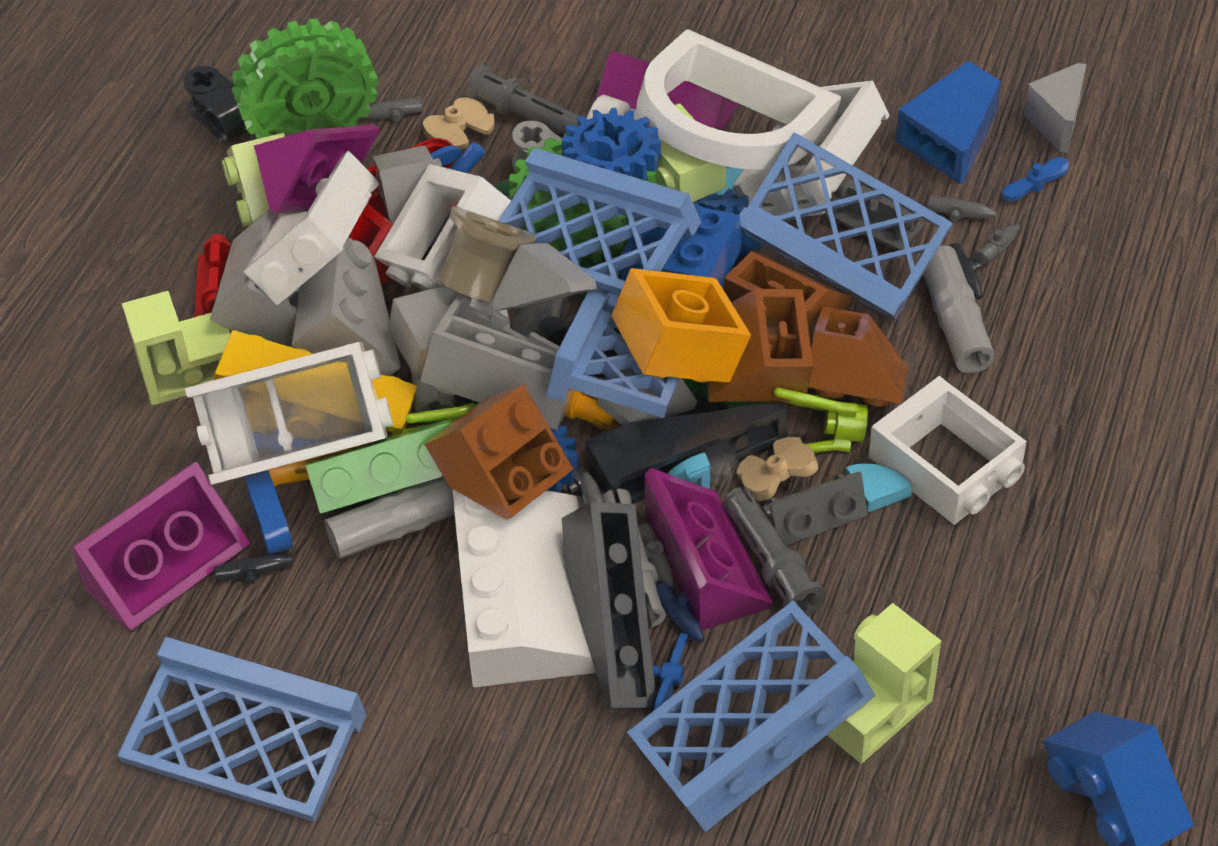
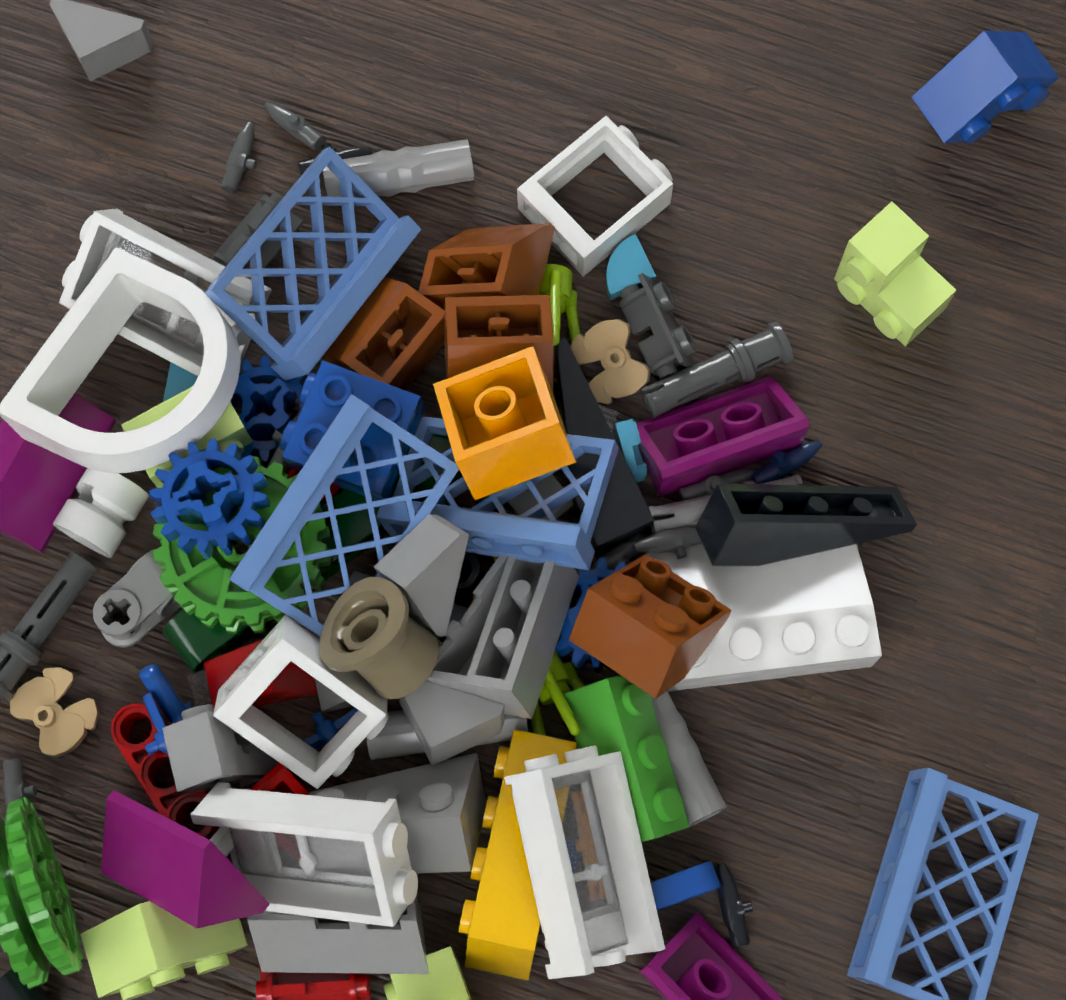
camera: 90 degrees left, 25 degrees up
(670, 673) = (859, 471): blue piece -> none
(771, 738) = (970, 368): medium blue fence -> none
(950, 120) = (112, 146): blue slope -> none
(1036, 179) = (201, 78): blue piece -> none

